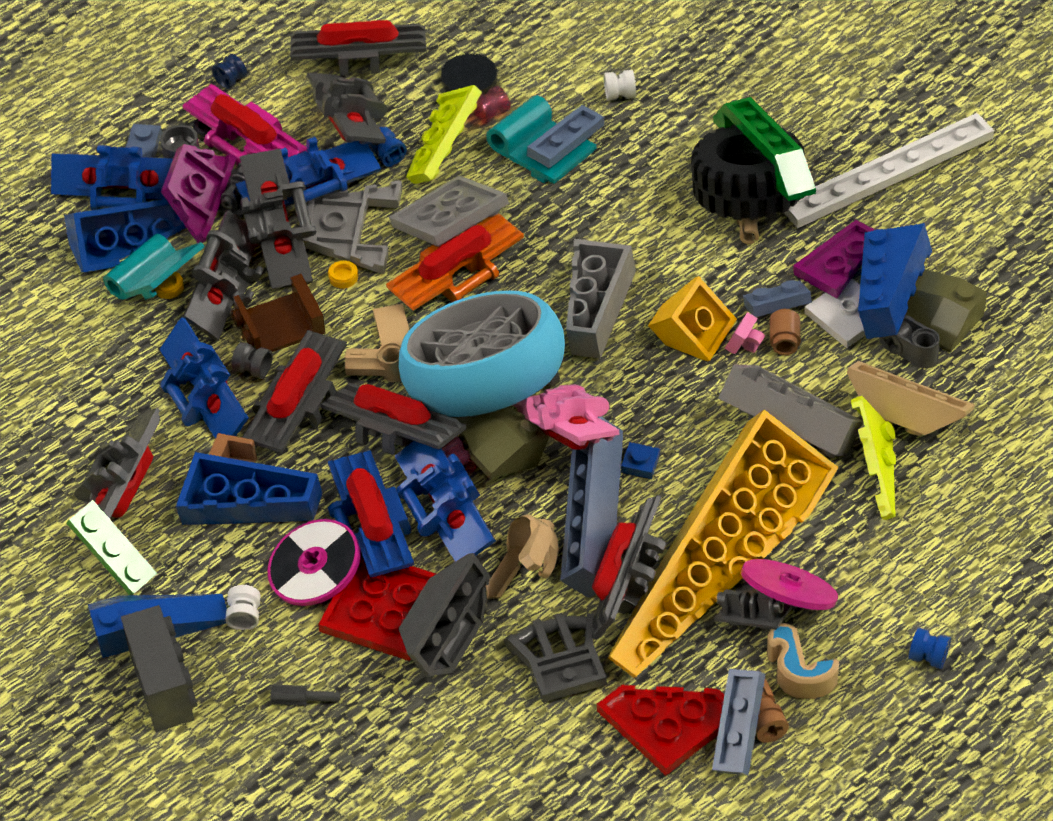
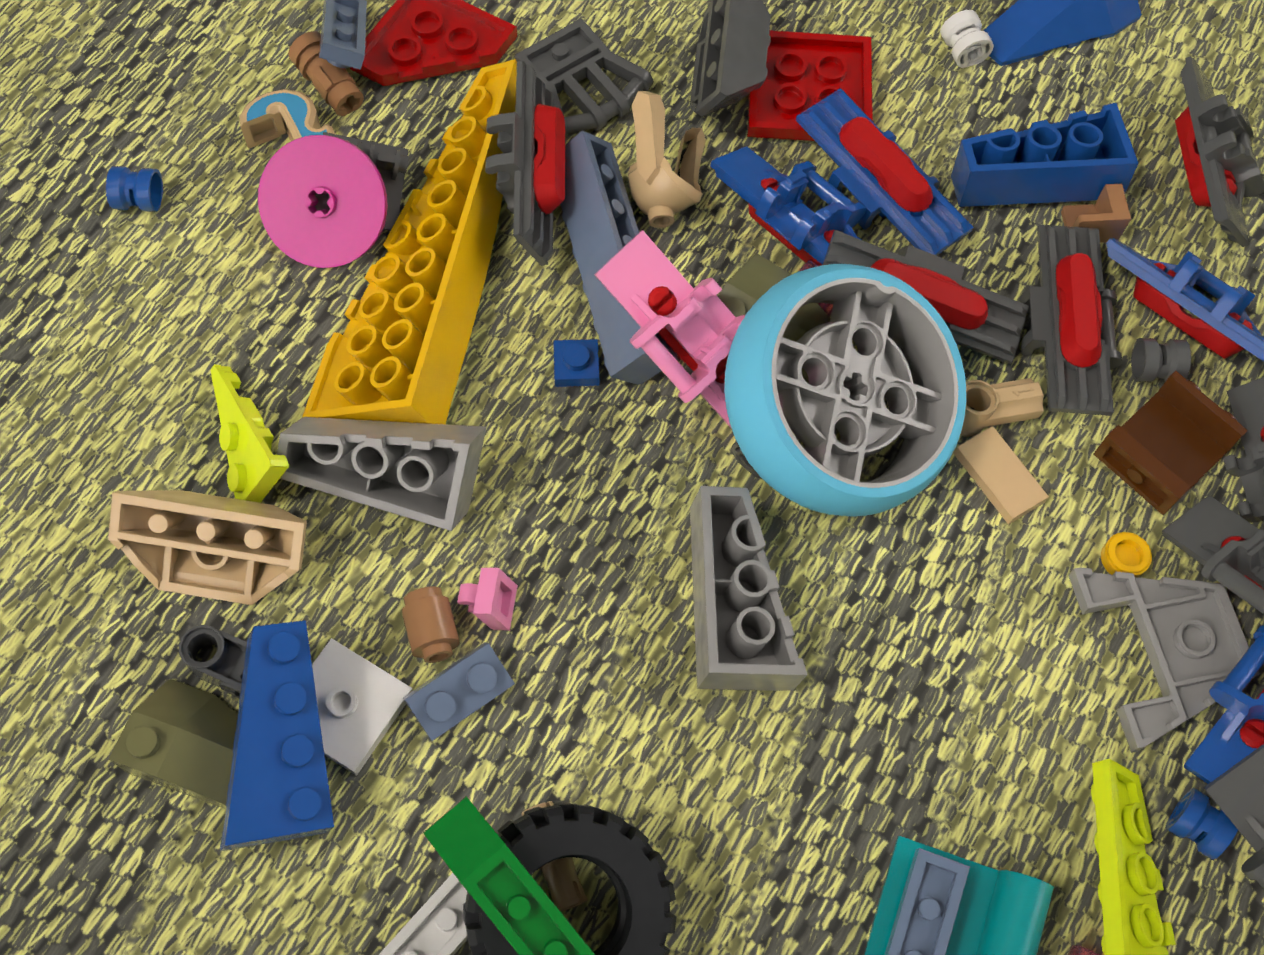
camera: 155 degrees right, 15 degrees up
(111, 548) = (1157, 47): plate -> none
(307, 584) = (917, 108): piece -> none
(438, 263) = (979, 612): orange piece -> none
(449, 210) = (1029, 691): light grey plate -> none
(693, 320) = (574, 595): yellow slope -> none
(835, 261) = (378, 799): magenta wing -> none

